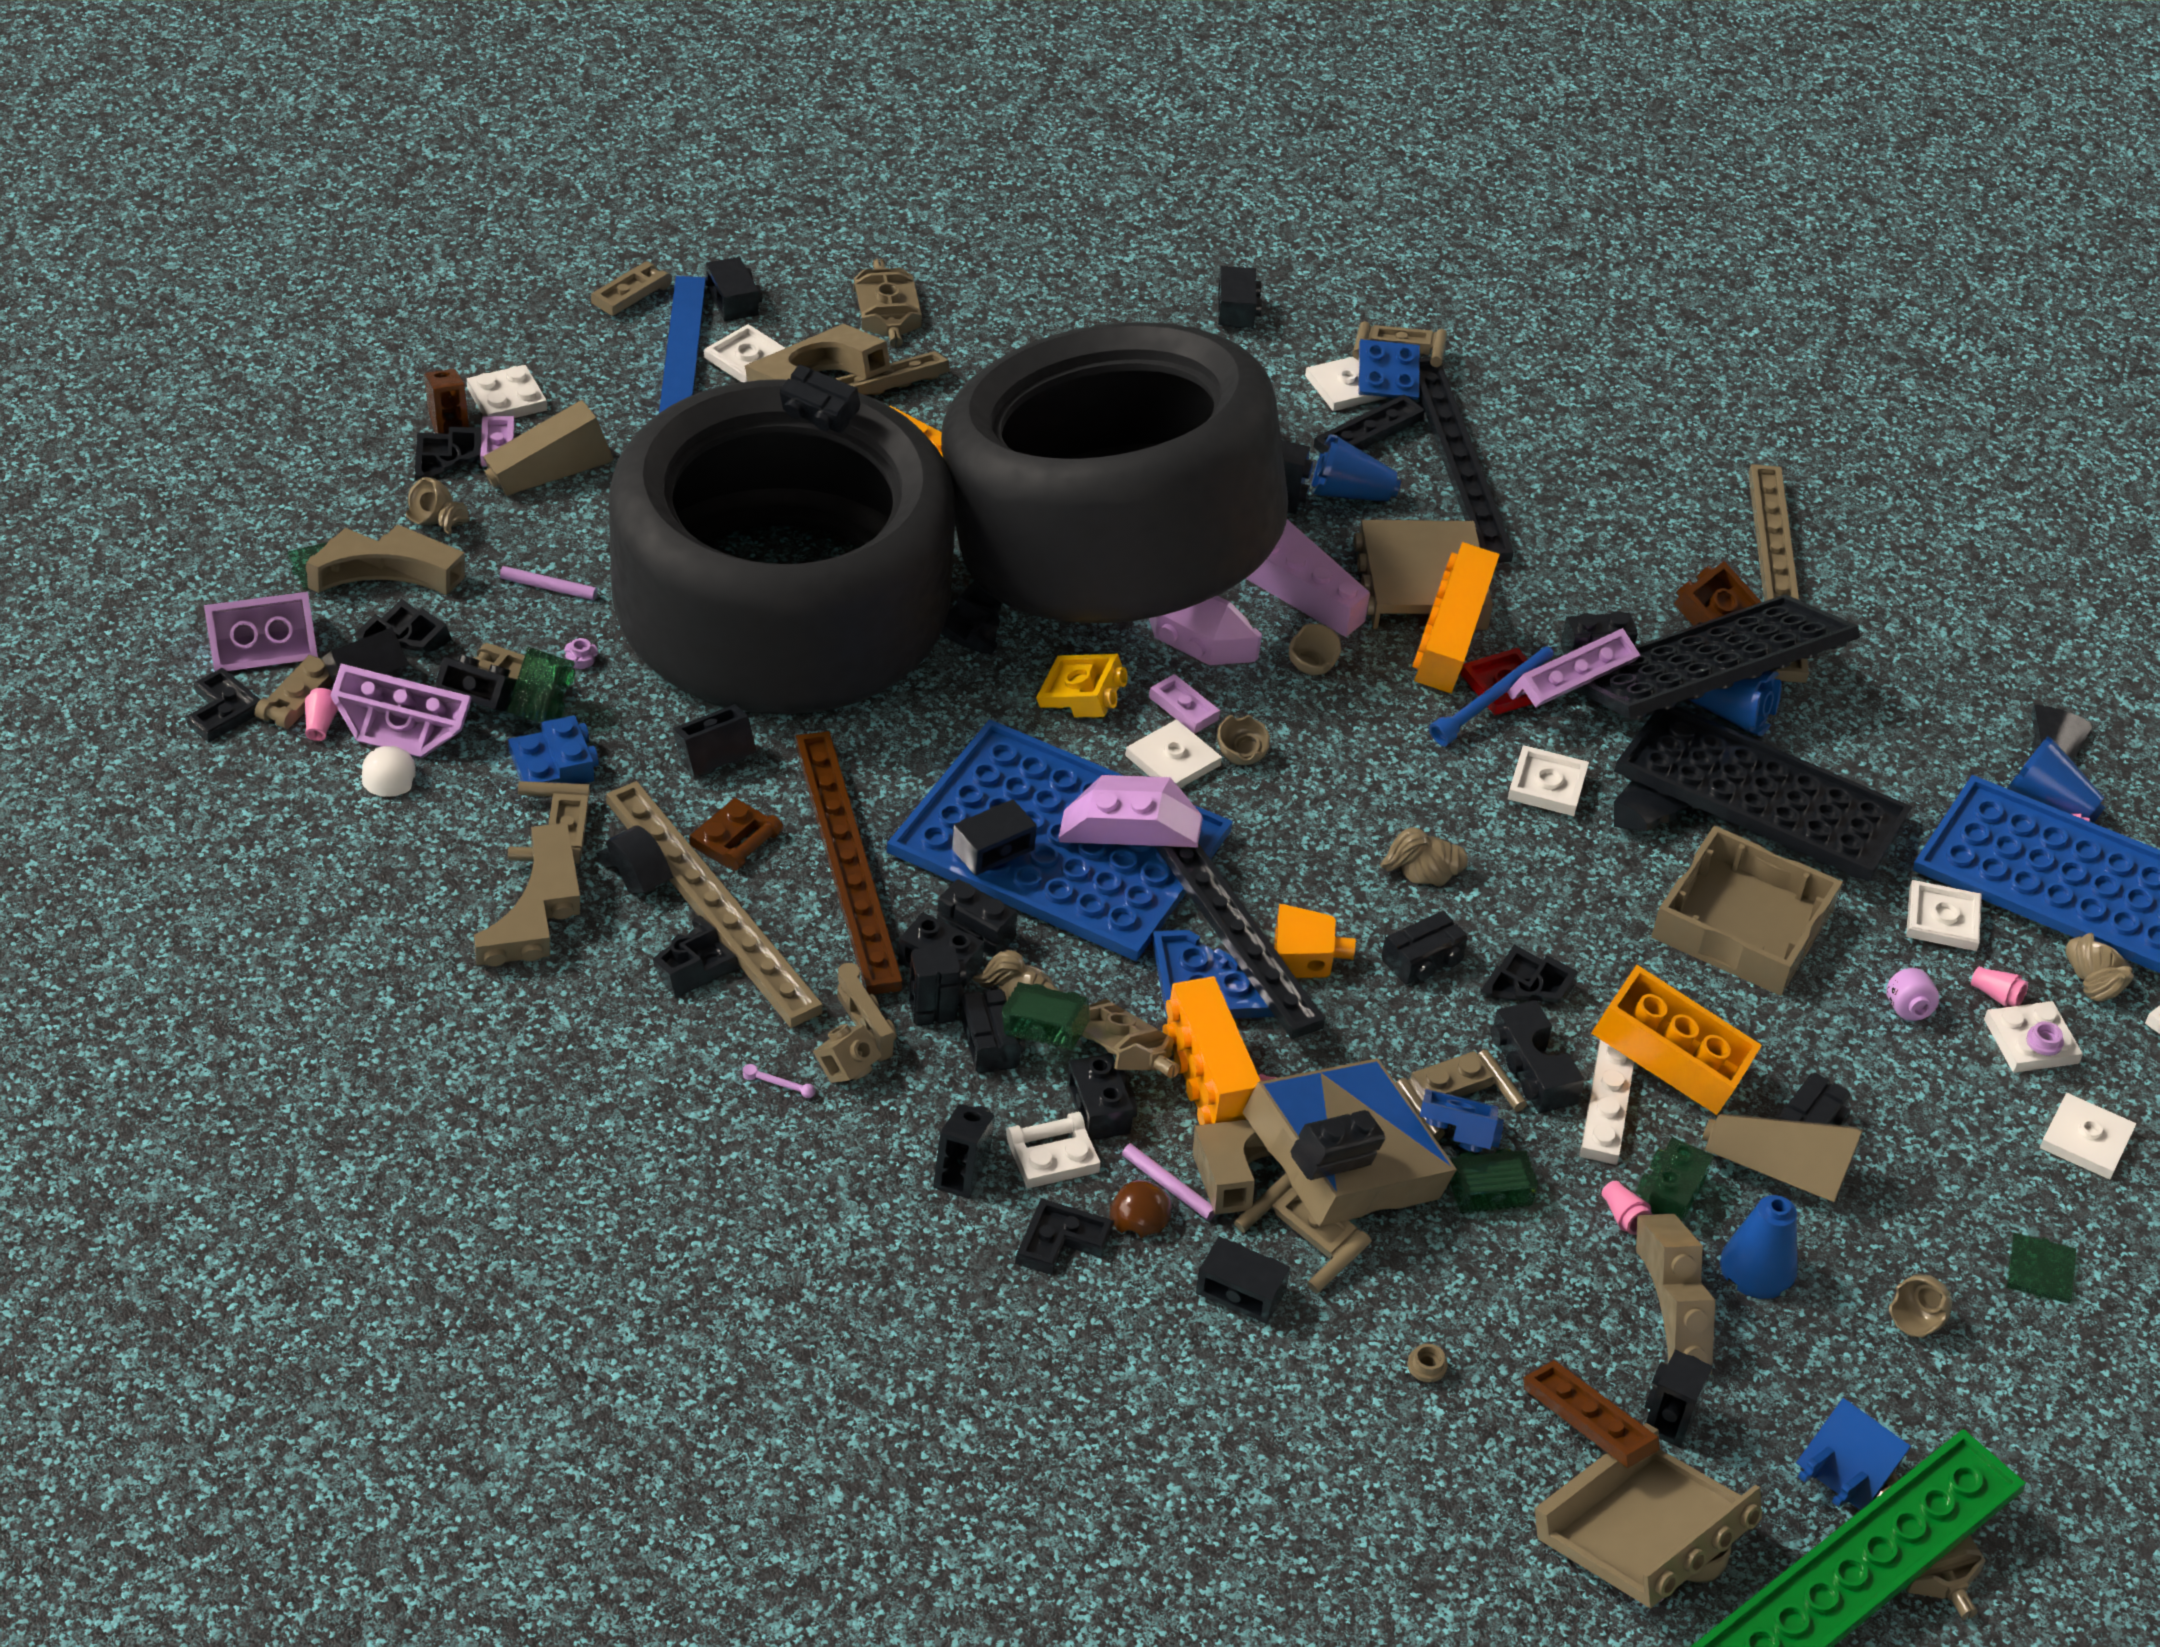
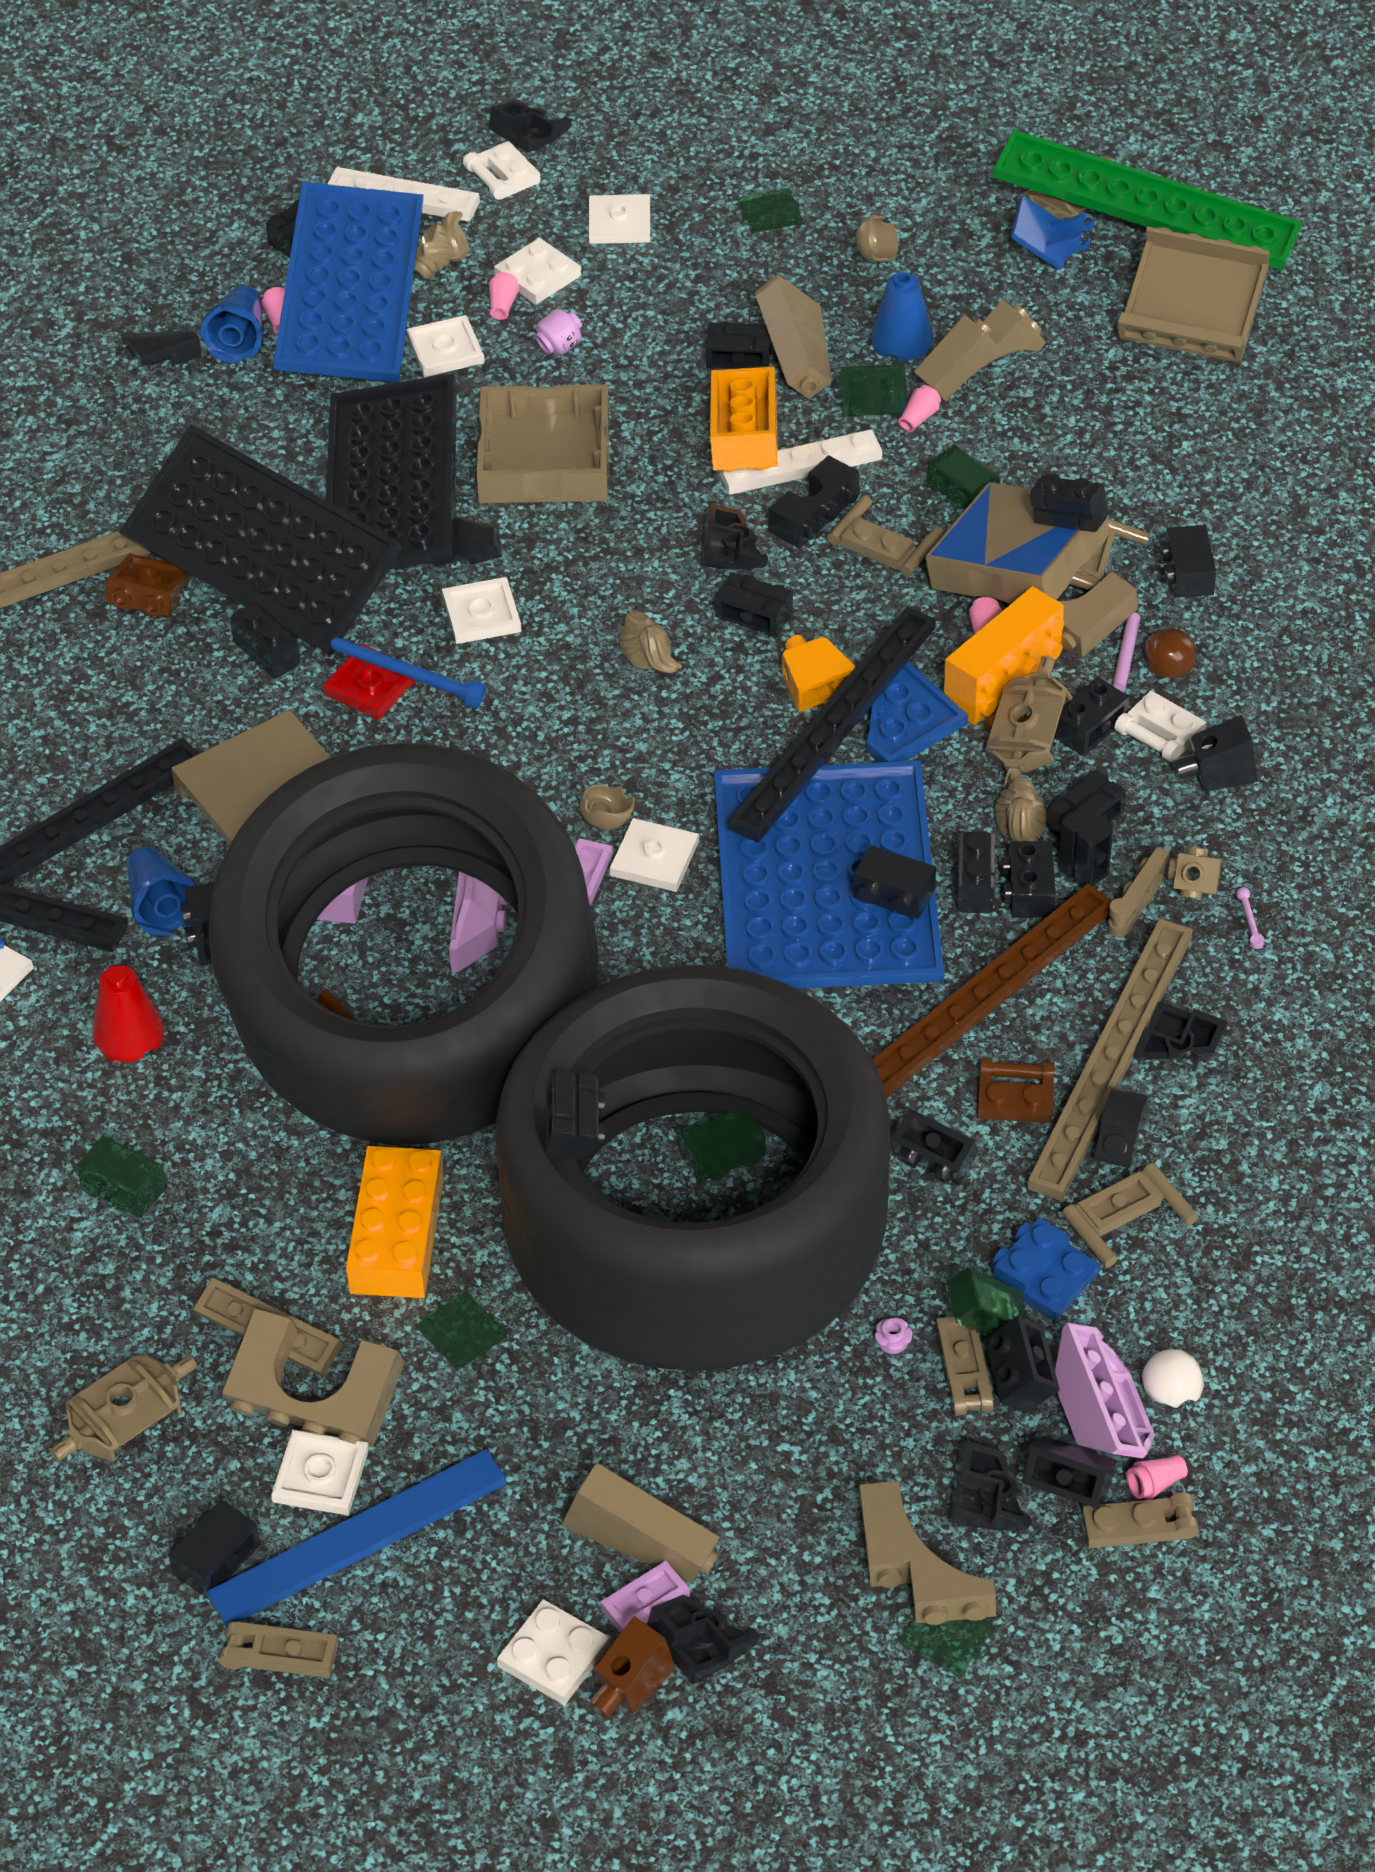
camera: 115 degrees left, 5 degrees up
(227, 708) = (1206, 1561): black tile -> none
(260, 631) = (1095, 1599): lavender slope -> none
(433, 504) = (801, 1574): dark tan hair -> none
(548, 583) = (816, 1425): lavender bar -> none
(549, 894) = (1219, 1150): dark tan arch -> none
(1046, 1015) = (1069, 746): clear green brick -> none
(1057, 1227) = (1233, 694): black tile -> none
(1084, 684) = (627, 941): yellow plate -> none
(1132, 813) = (795, 807): lavender wedge -> none
(1430, 1355) = (1158, 455): dark tan plate -> none
(1454, 617) = (349, 704): light orange brick -> none
(1474, 1122) = (930, 501): blue plate -> none
(1576, 668) = (340, 611): lavender fence -> none
(1591, 1413) = (1137, 348): reddish brown plate -> none
(1677, 1396) = (1083, 313): black brick -> none
(2045, 1038) = (556, 245): lavender plate -> none

